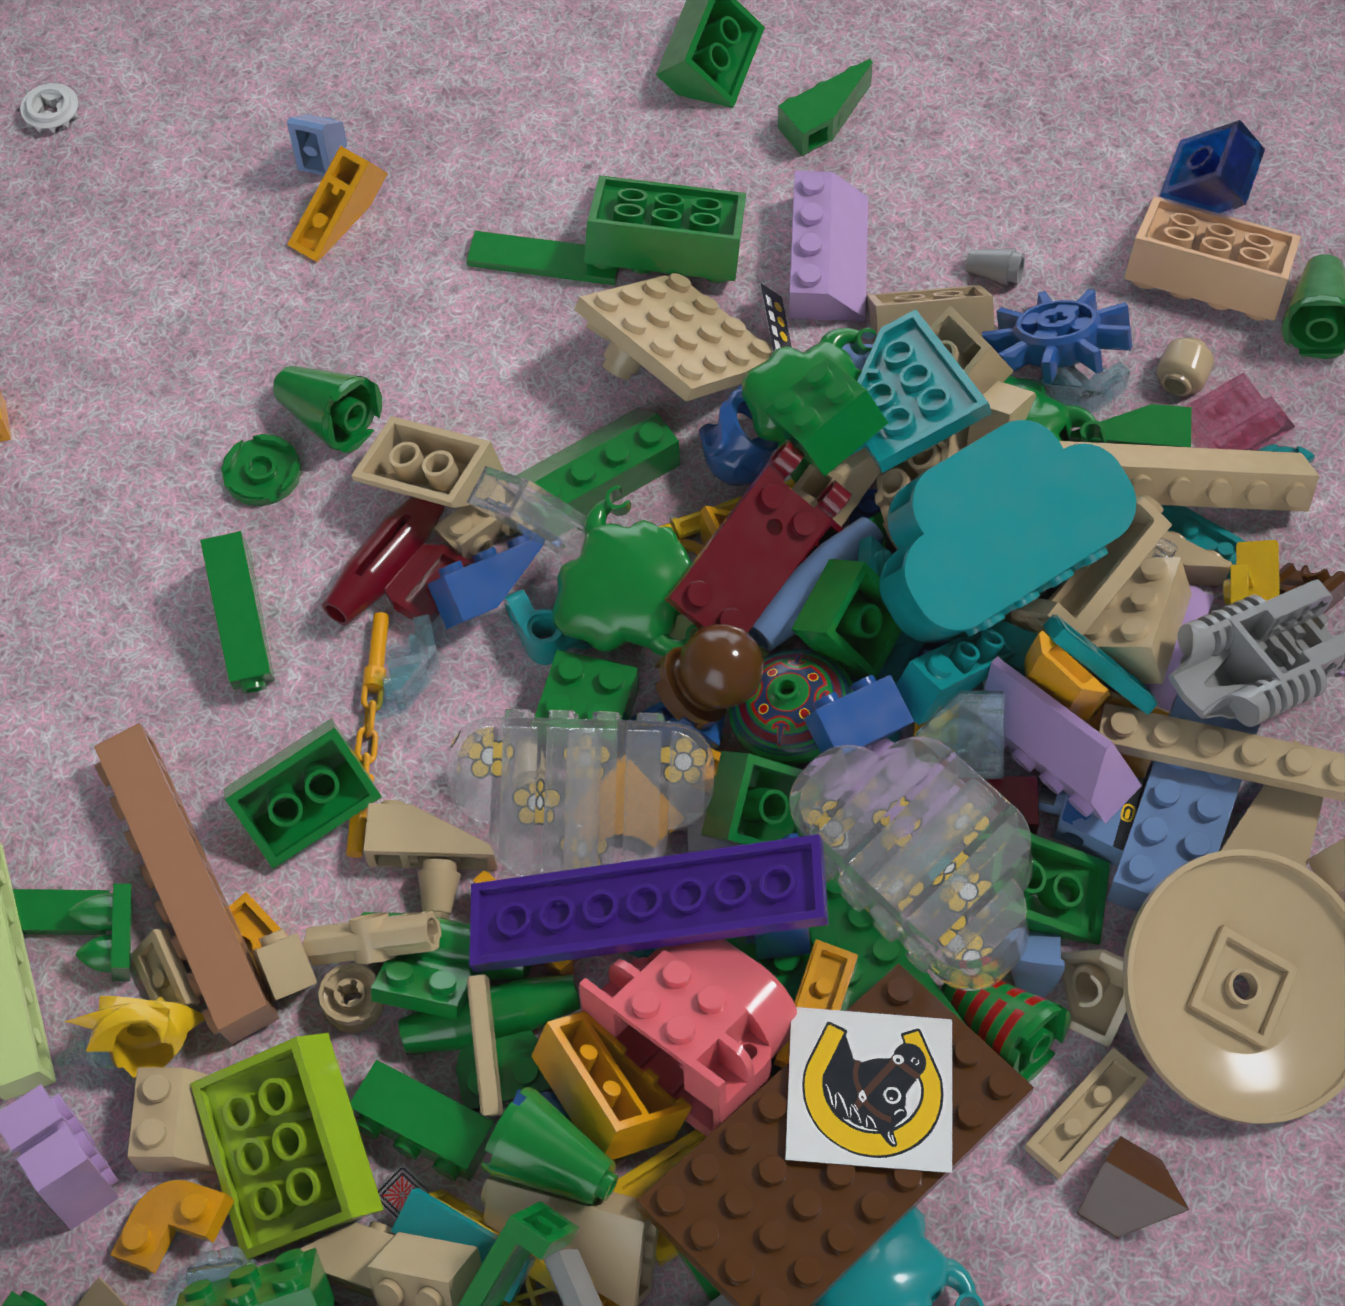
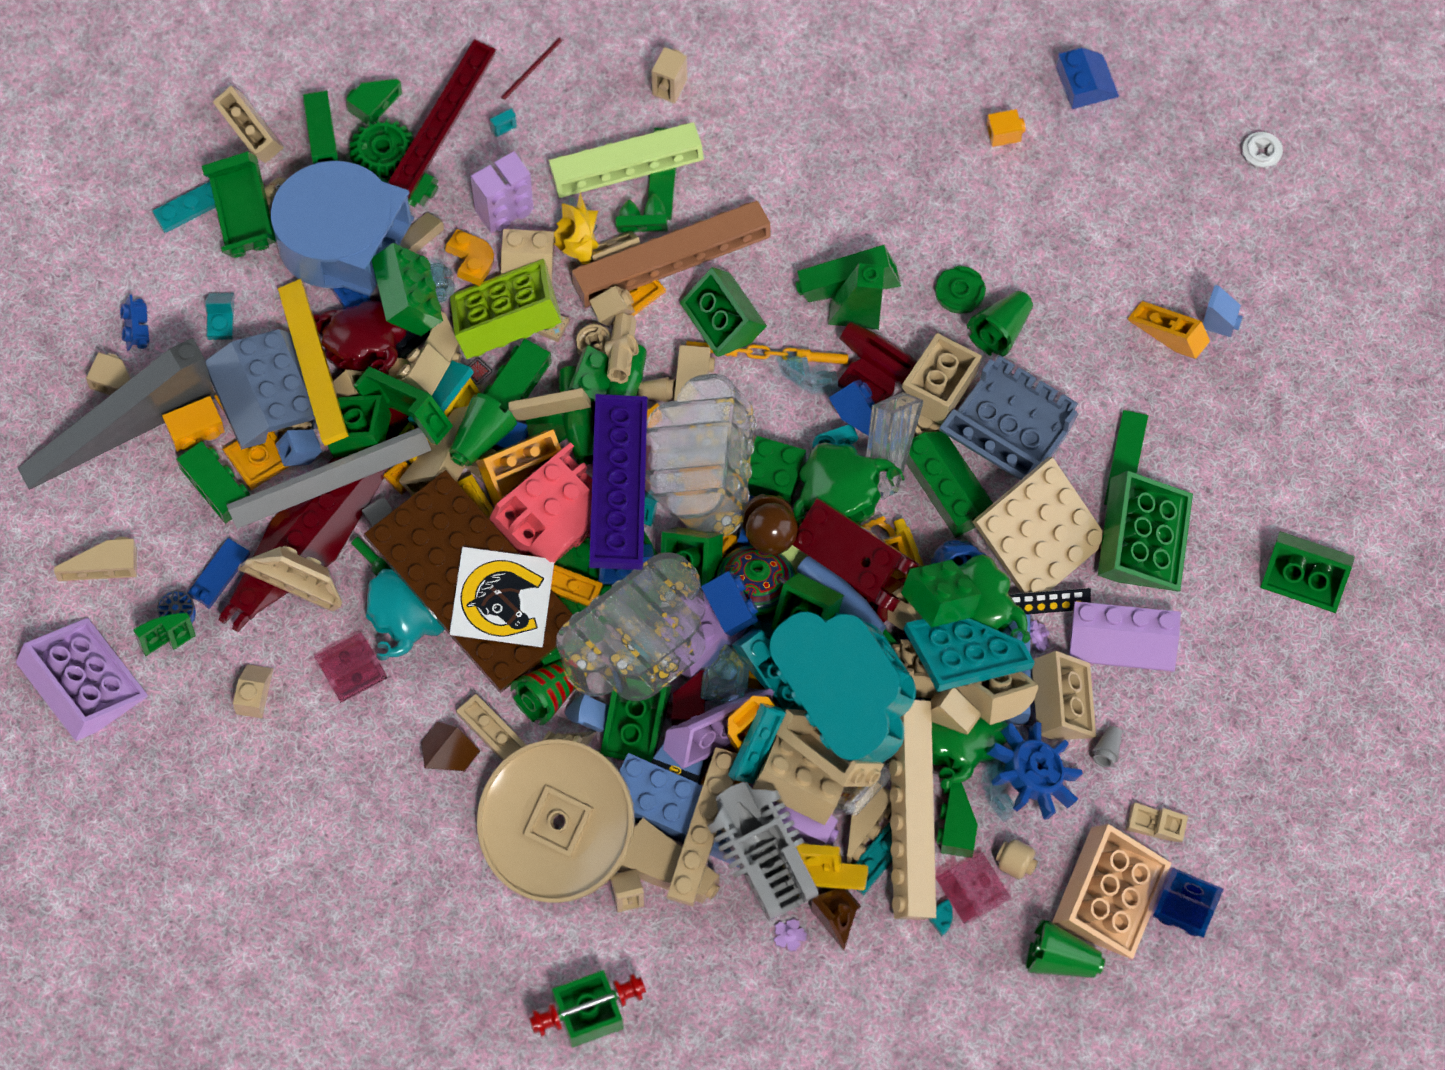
camera: 90 degrees right, 5 degrees up
(291, 575) = (859, 298): none -> green slope
(494, 380) = (1011, 419): none -> sand blue slope
(821, 111) = (1244, 640): green slope -> none
(1099, 211) = (1155, 823): none -> tan slope

